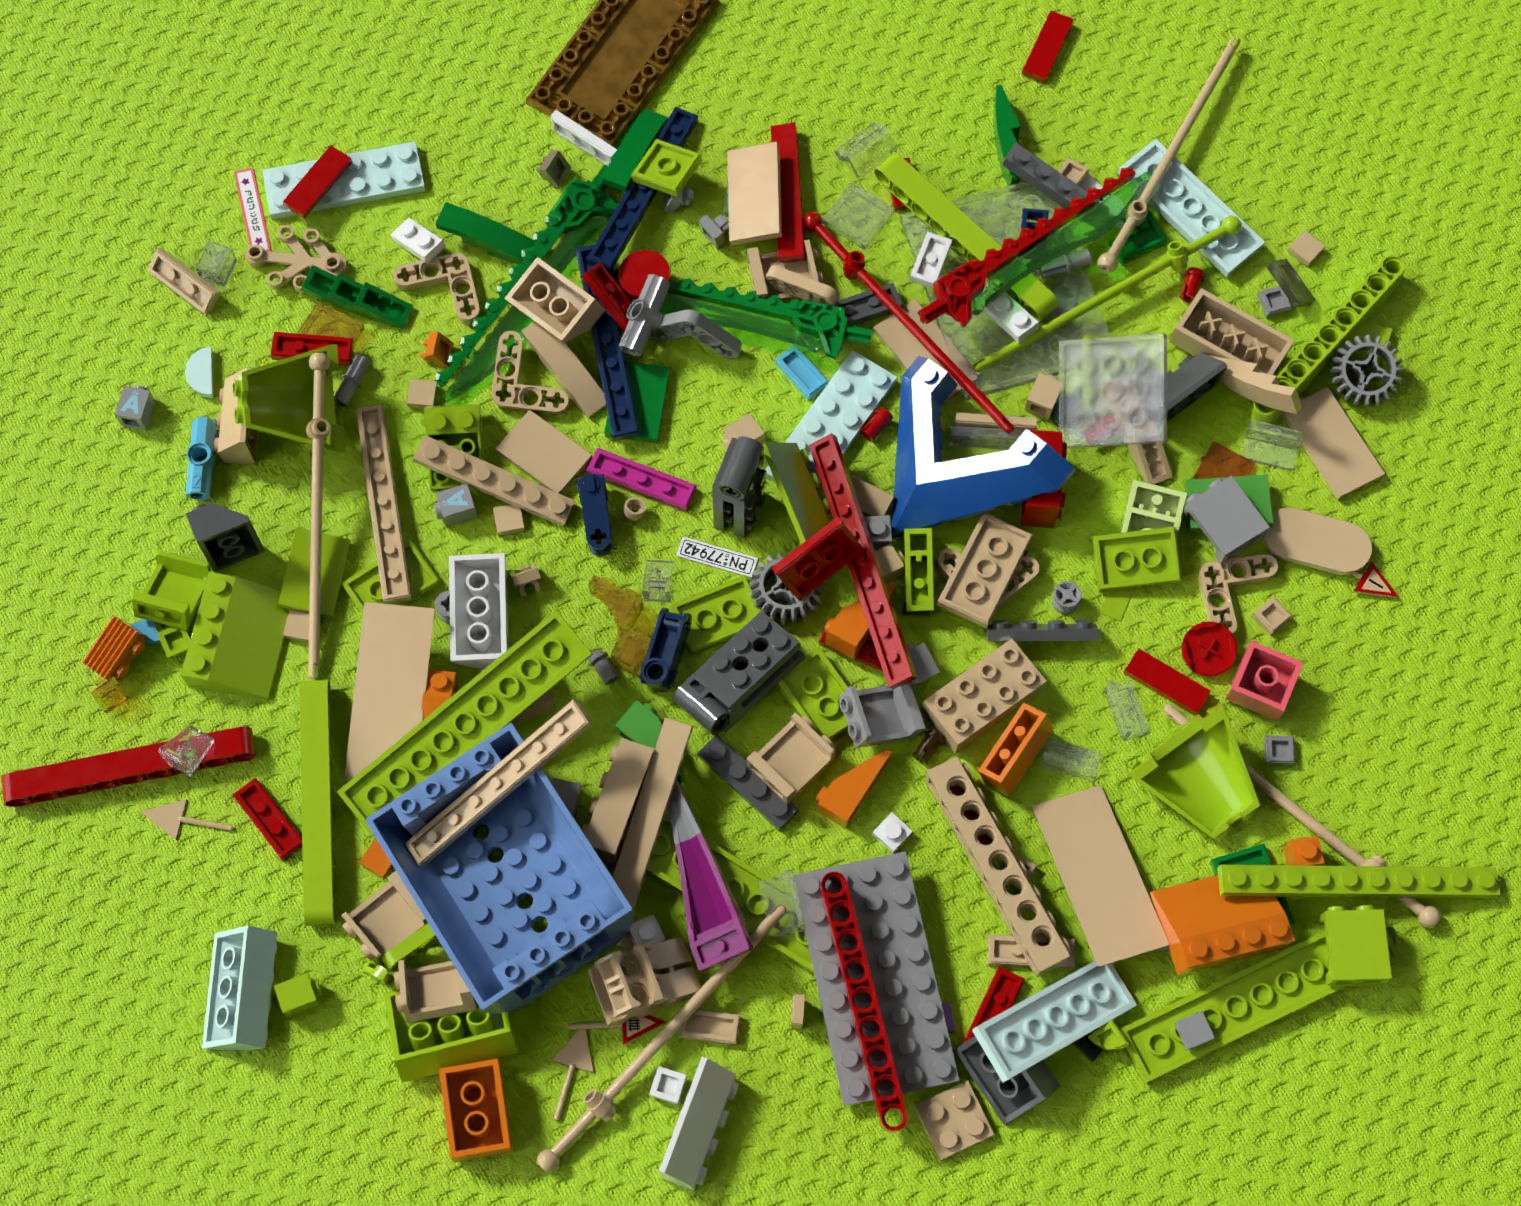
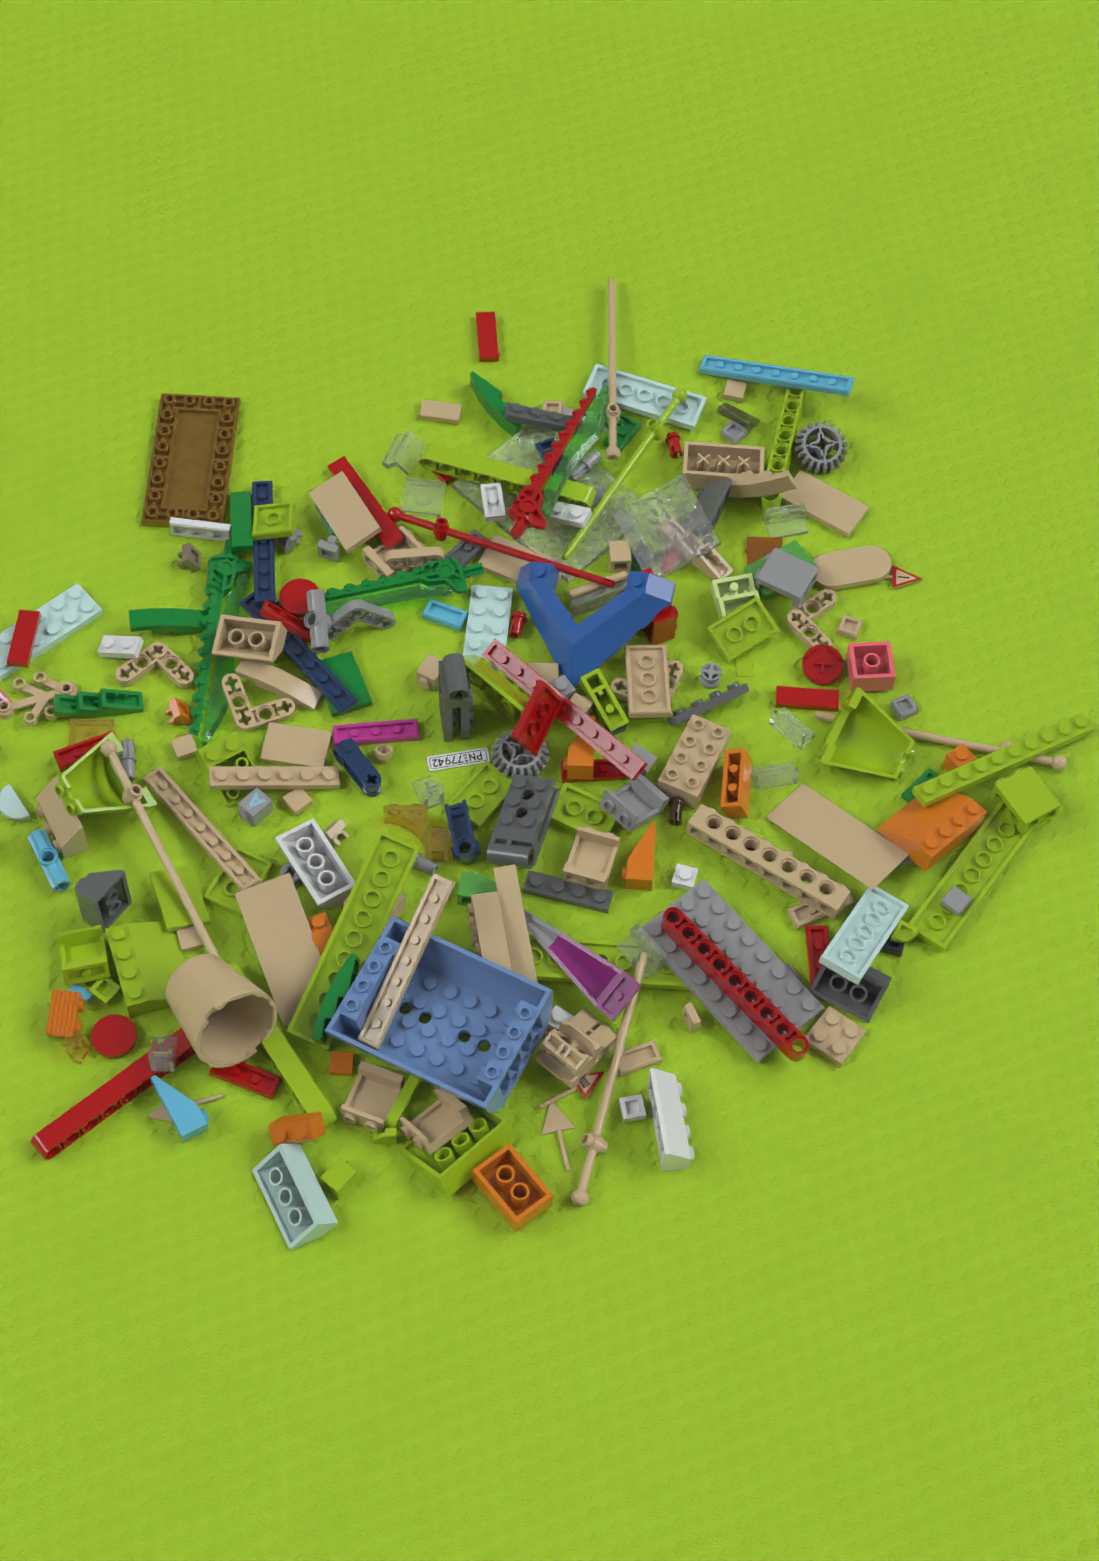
camera: 30 degrees left, 10 degrees down
(157, 699) = (114, 1036): none -> red tile
(174, 829) = (182, 1111): none -> medium azure slope
(263, 735) = (219, 1010): none -> tan cone
(281, 914) = (297, 1128): none -> orange brick
(405, 779) = (335, 996): none -> green slope
(939, 117) = (440, 411): none -> tan tile
(1366, 254) = (777, 375): none -> medium azure tile

